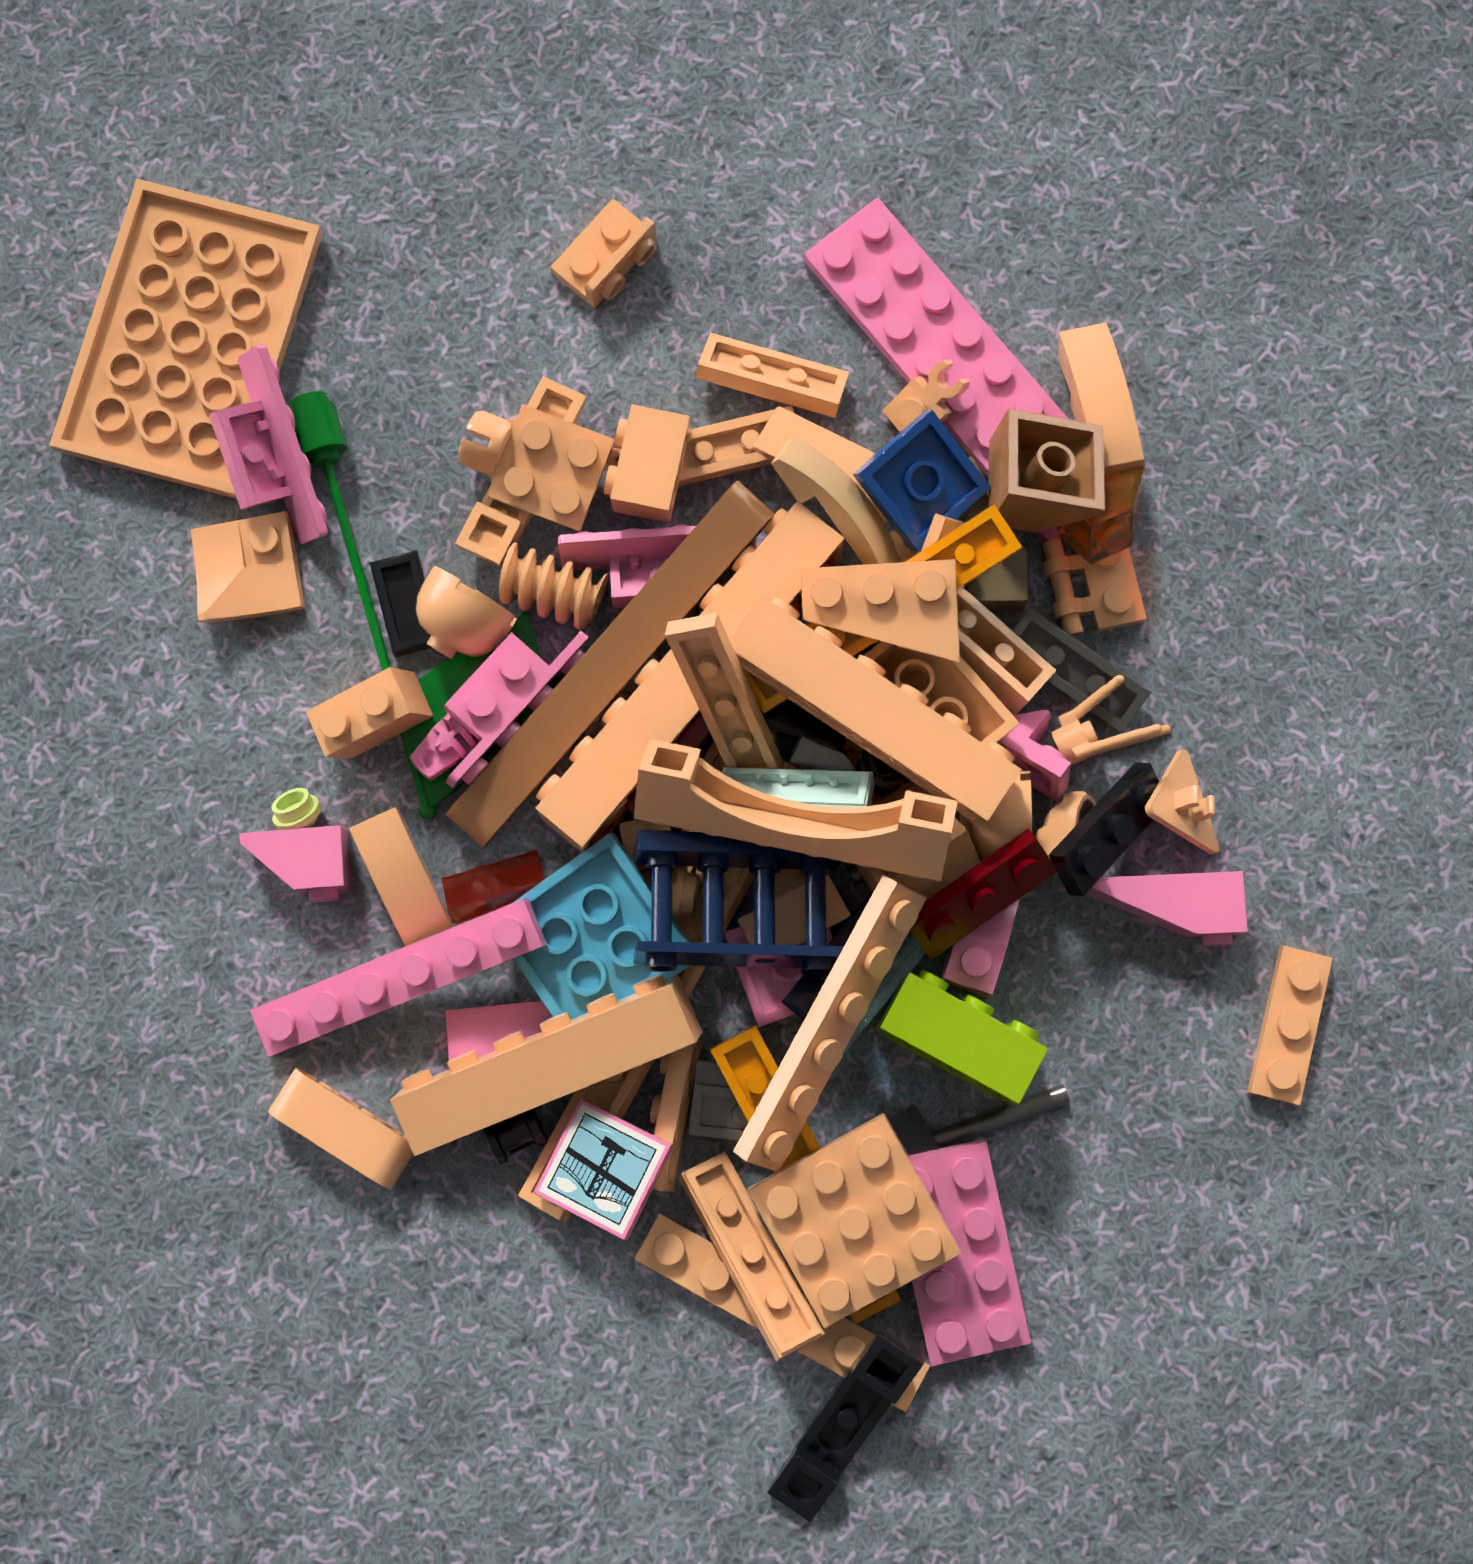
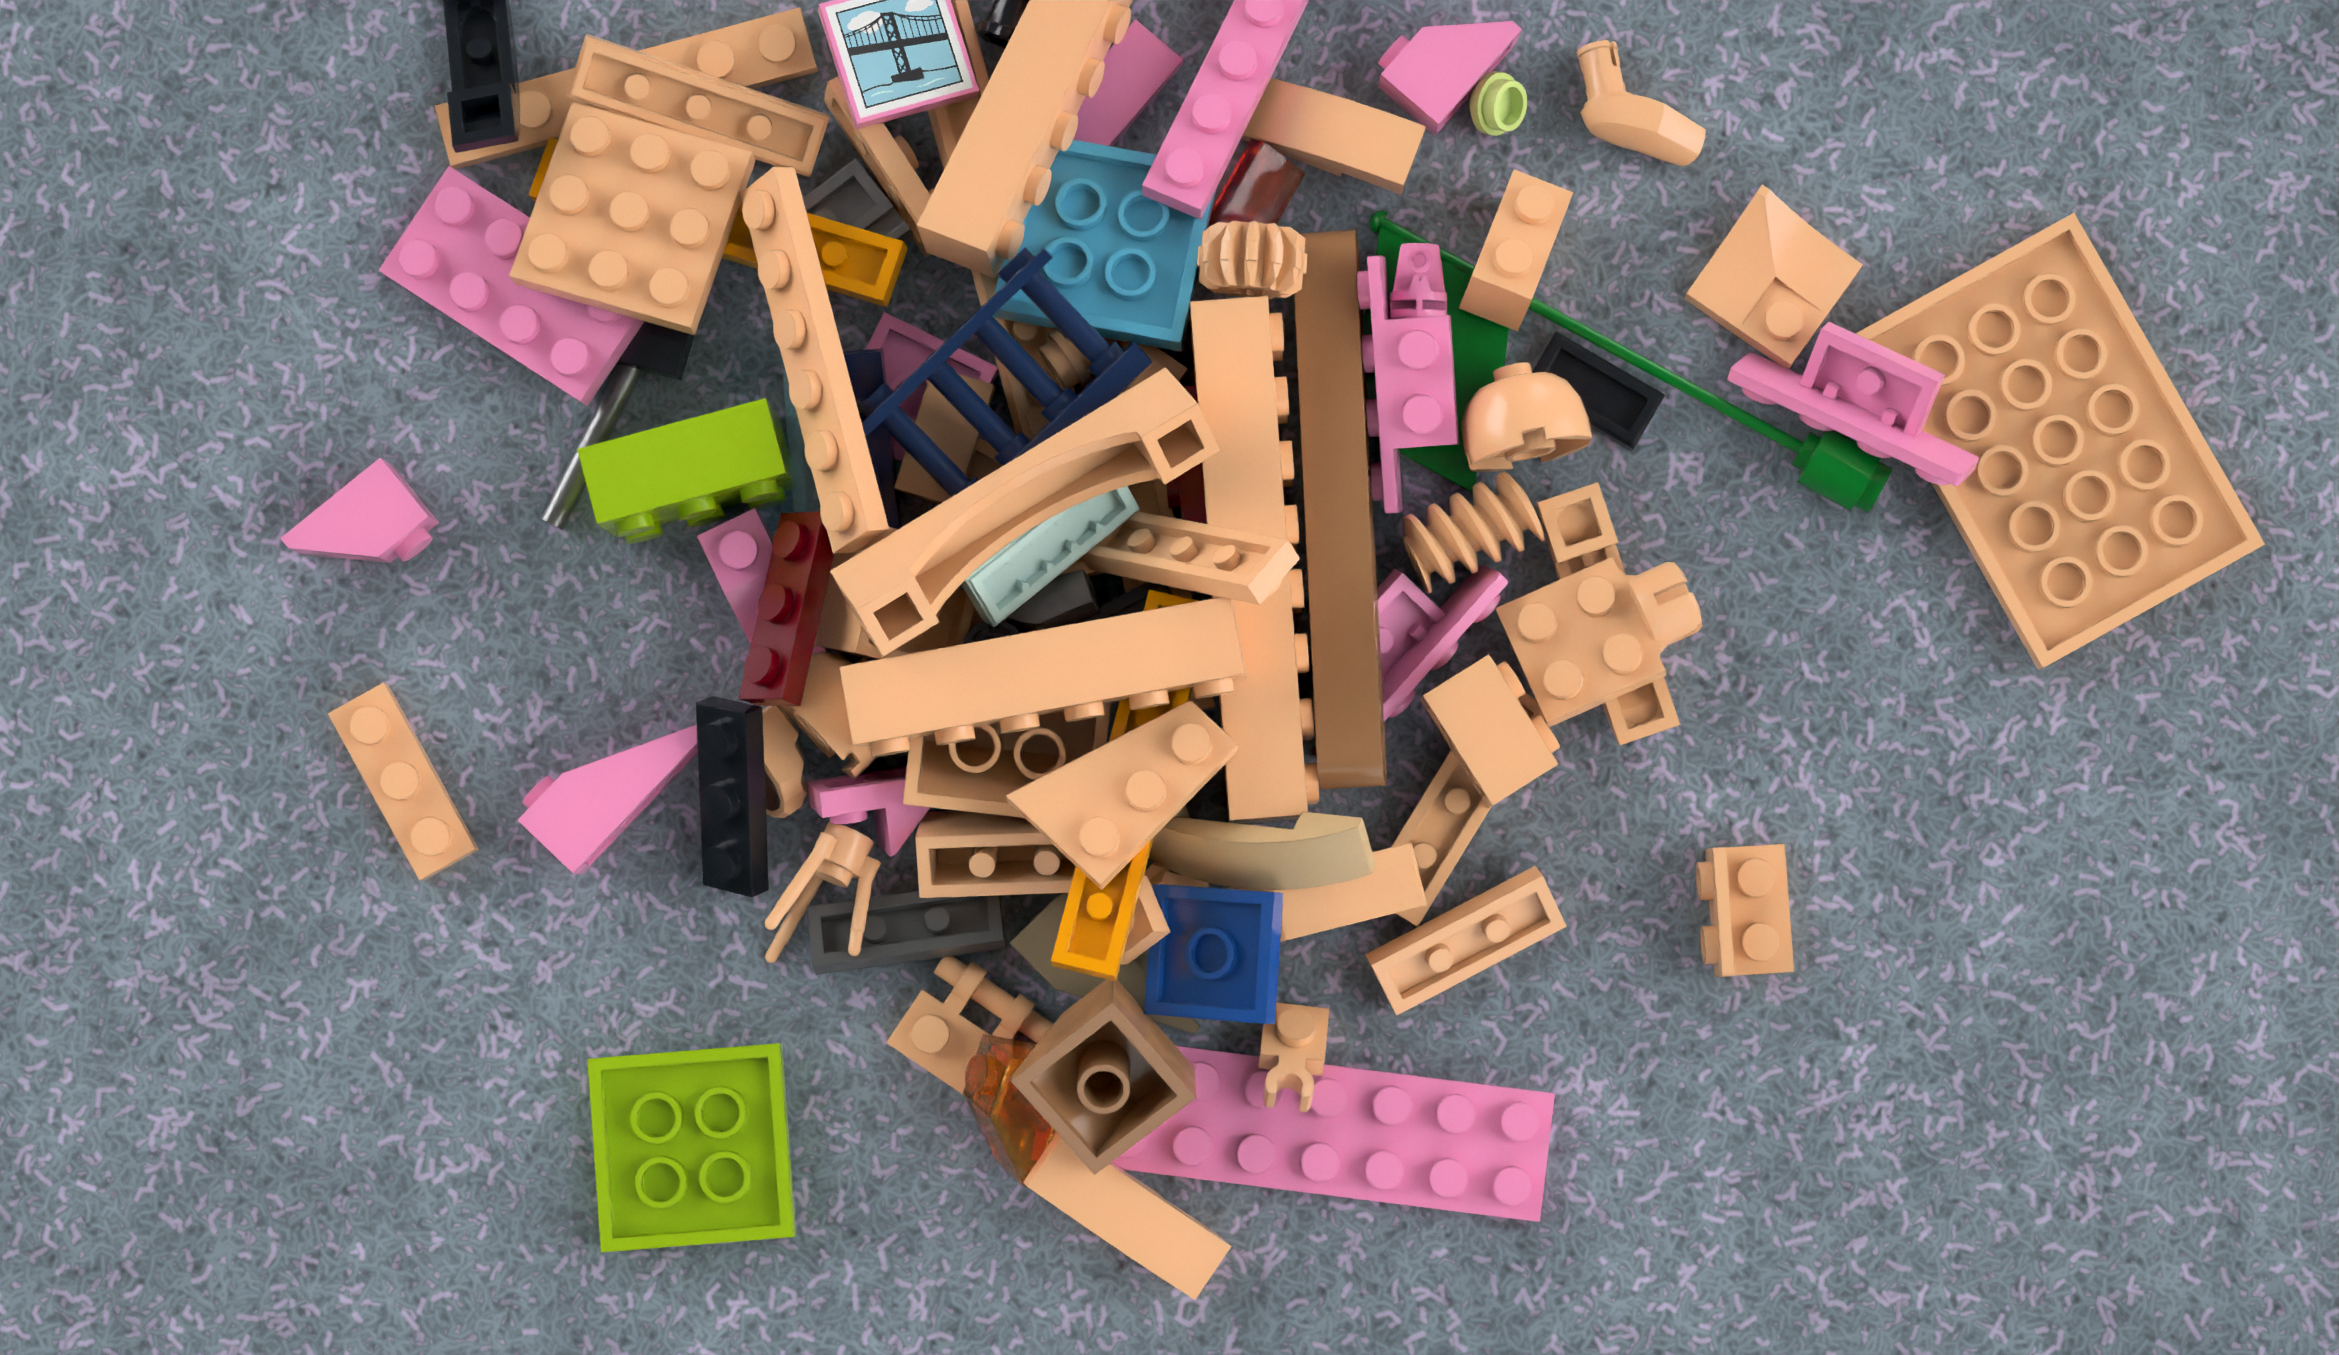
camera: 140 degrees right, 5 degrees up
(234, 730) = (1632, 119): none -> light nougat arm
(522, 843) = (1252, 259): none -> light nougat gear
(1174, 1194) = (367, 520): none -> bright pink slope
(1181, 806) = (689, 891): light nougat piece -> none
(1310, 663) = (691, 1147): none -> lime plate

